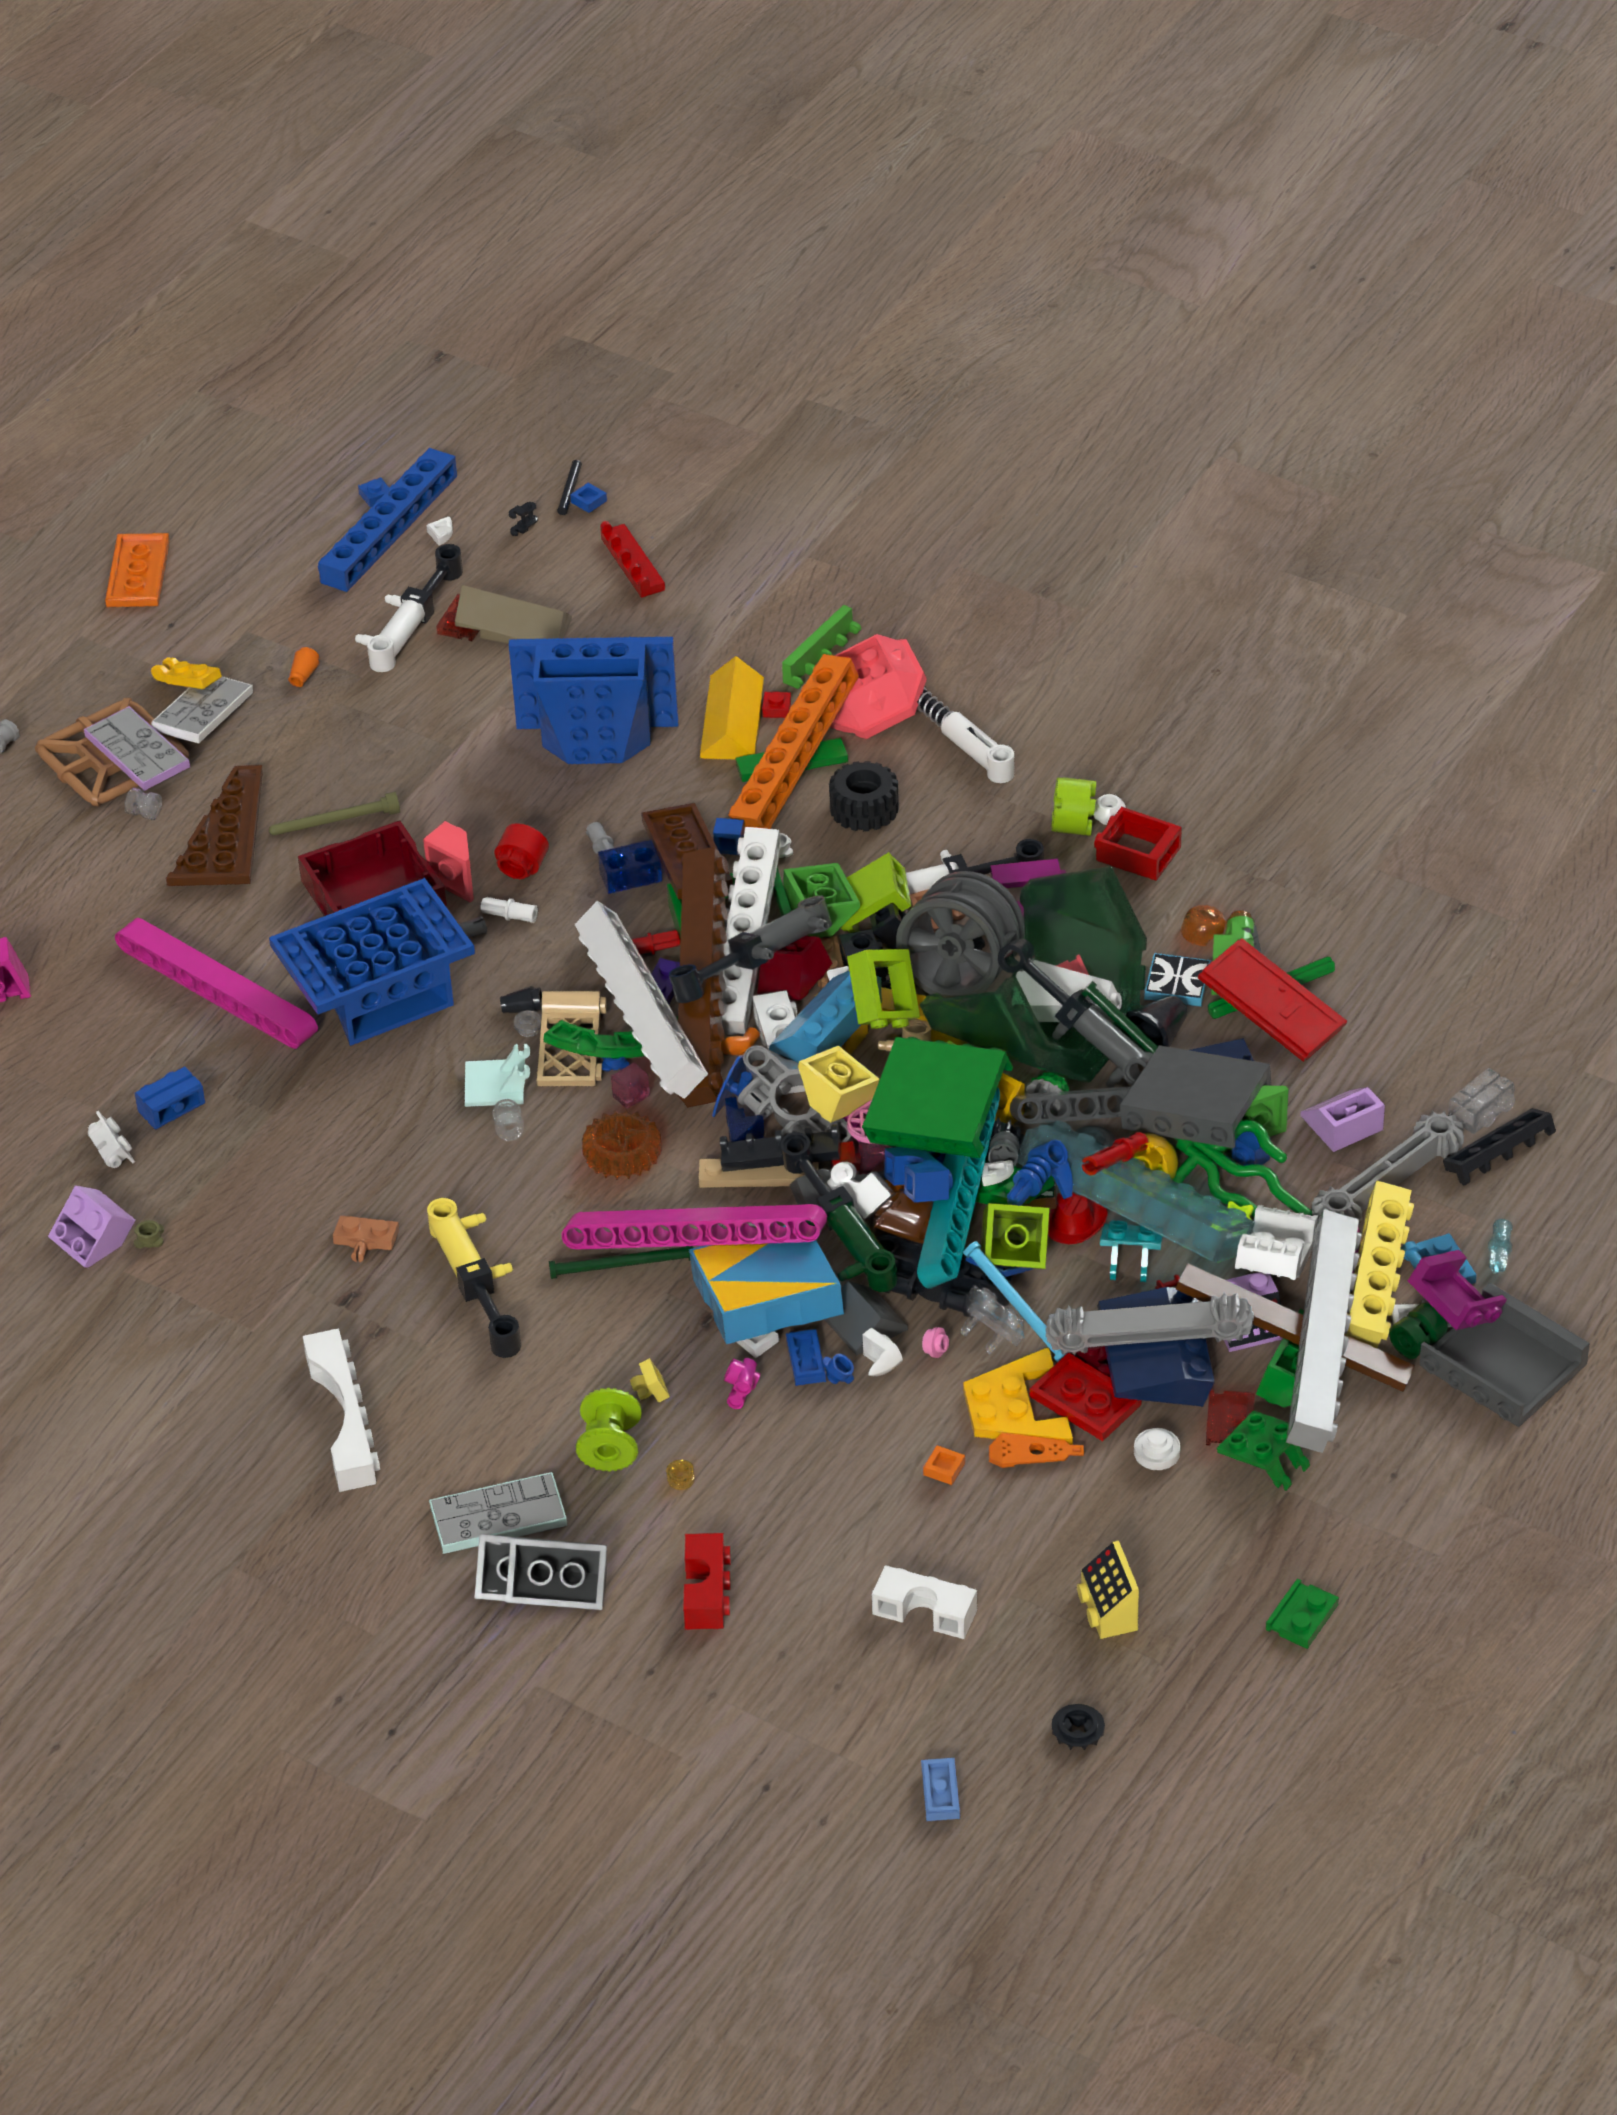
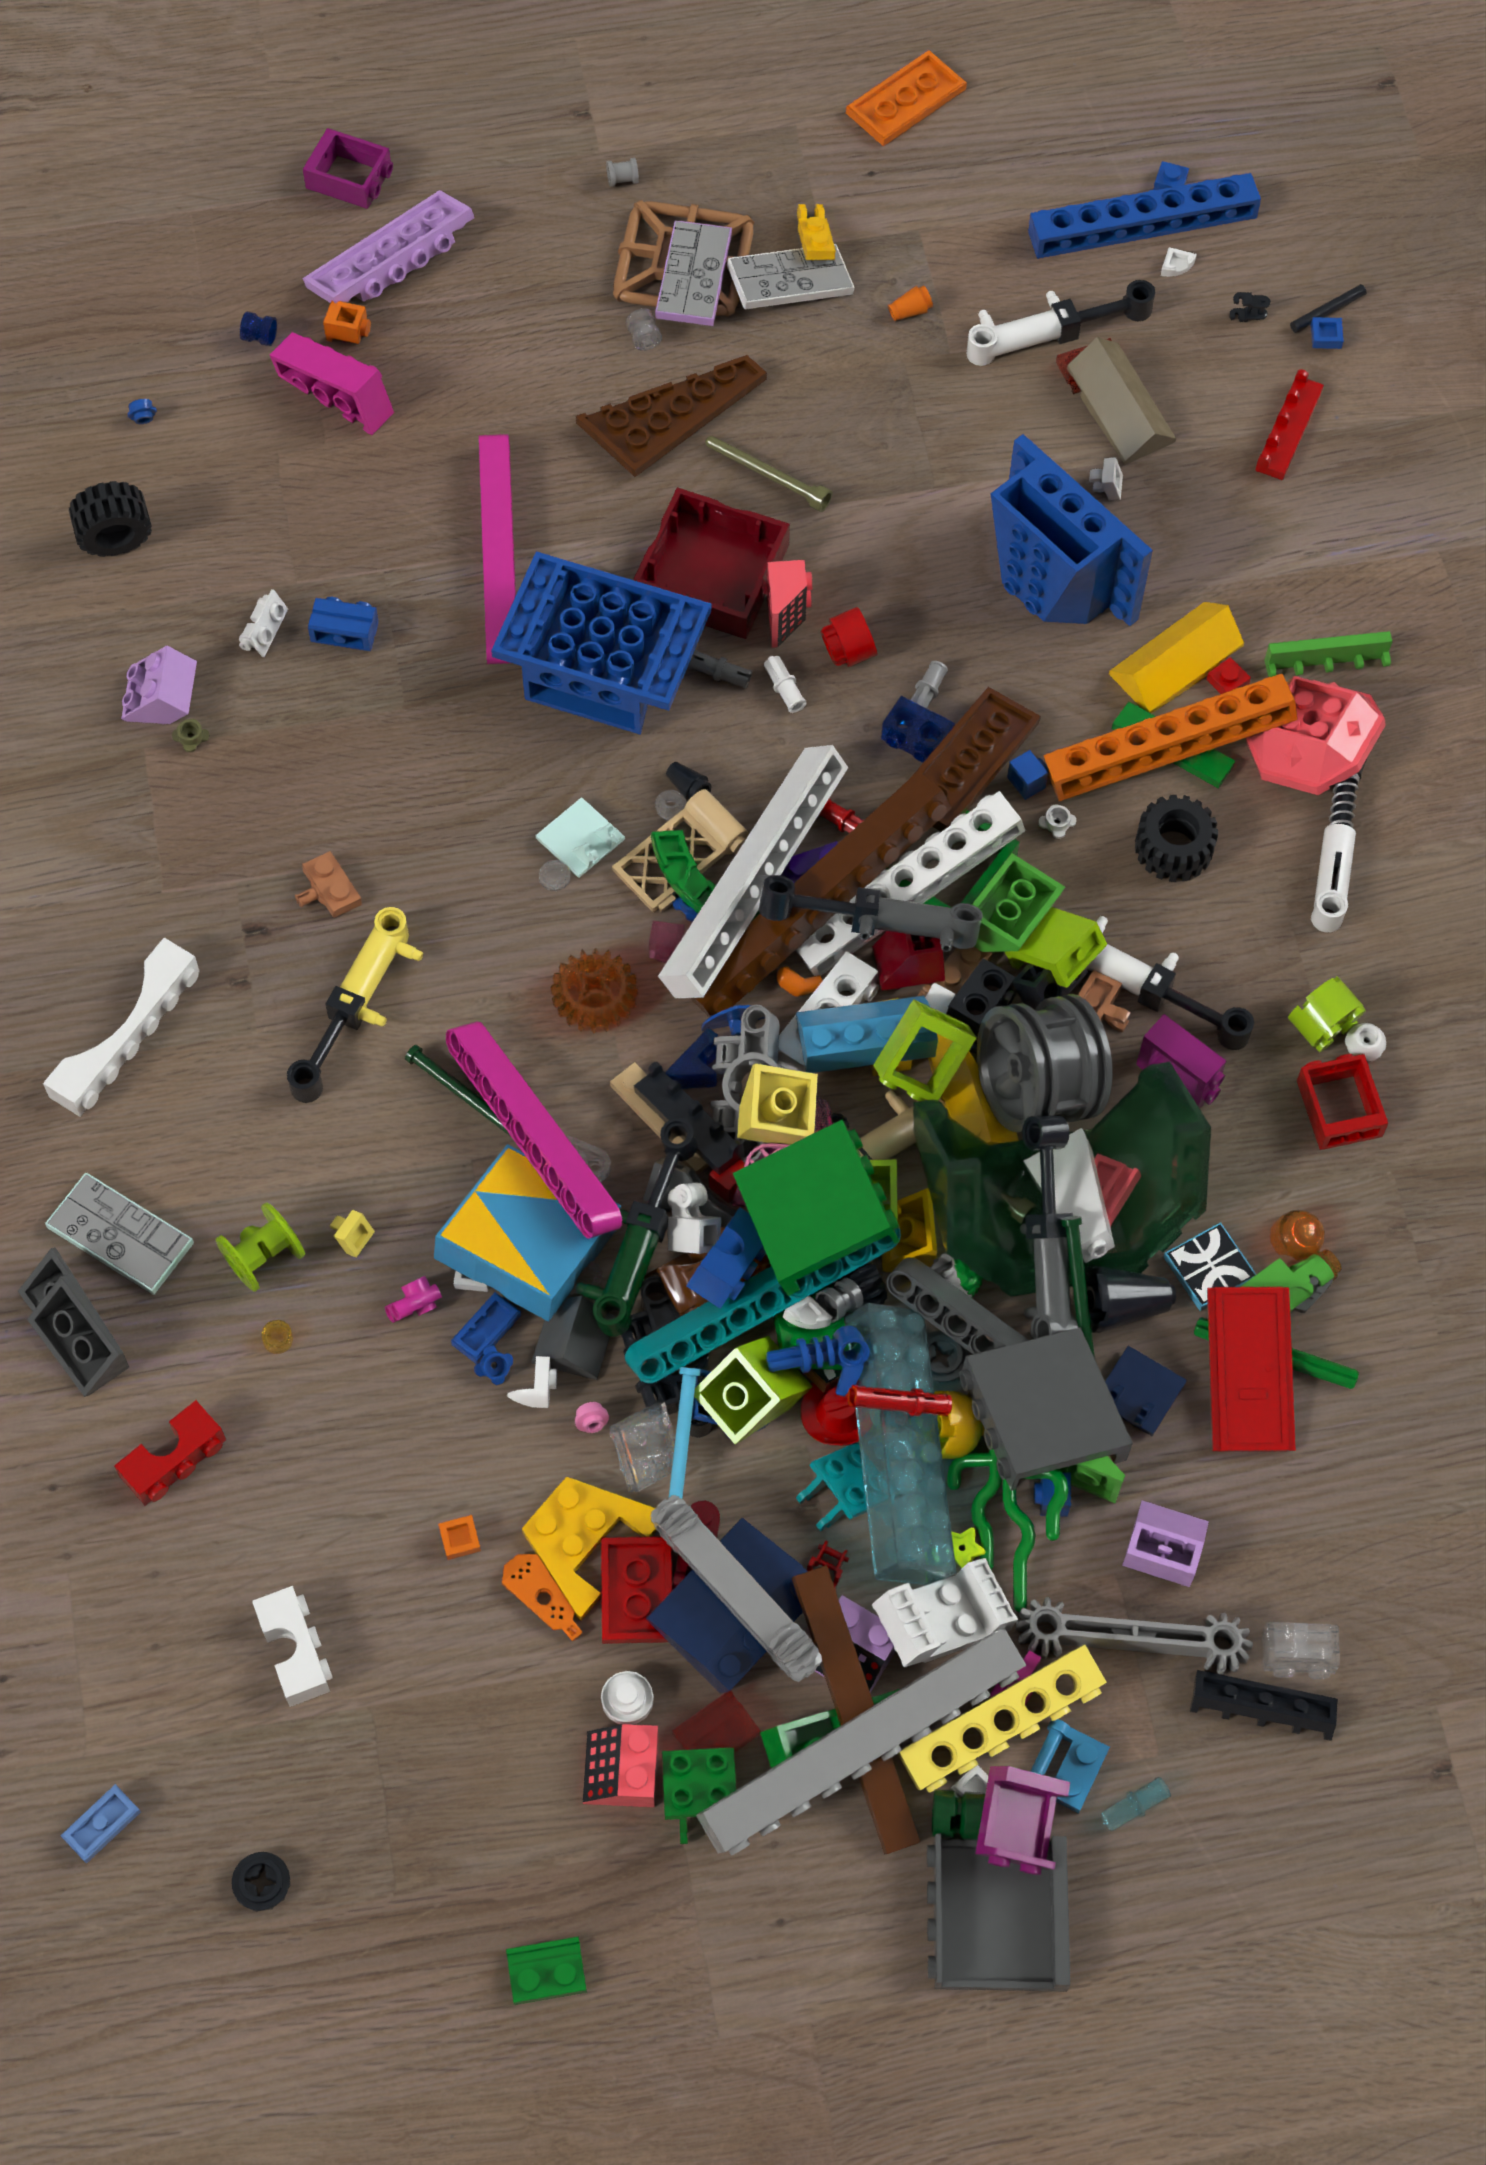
camera: 45 degrees right, 20 degrees up
(513, 1134) = (537, 891): clear plate -> none
(1110, 1593) = (418, 1795): slope -> none
(1203, 1479) = (621, 1766): none -> coral slope

